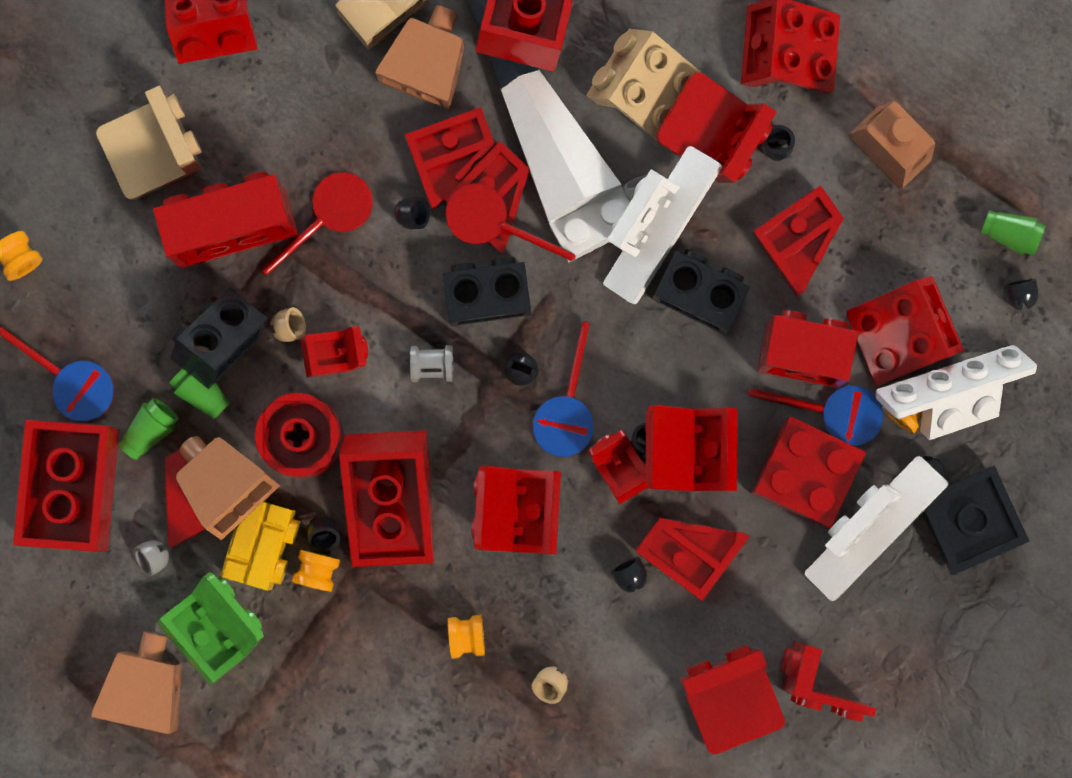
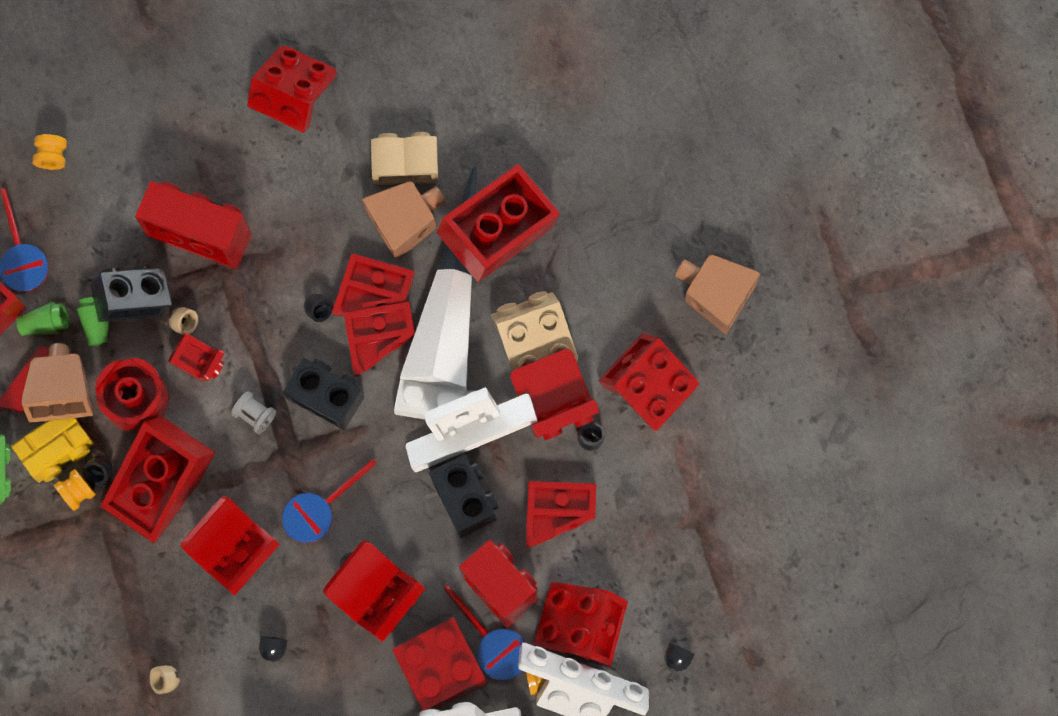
camera: 40 degrees right, 10 degrees down
(150, 146) = (187, 144): tan bracket -> none
(340, 204) = (278, 269): red piece -> none
(466, 636) = (135, 605): light orange wheel -> none
(479, 215) = (357, 339): red piece -> none
(518, 377) = (302, 463): black hinge -> none
(619, 466) = (320, 566): red bracket -> none
(691, 553) = (322, 662): red wing -> none
(894, 142) = (666, 494): nougat torso -> none
(1013, 231) = (705, 612): bright green cone -> none

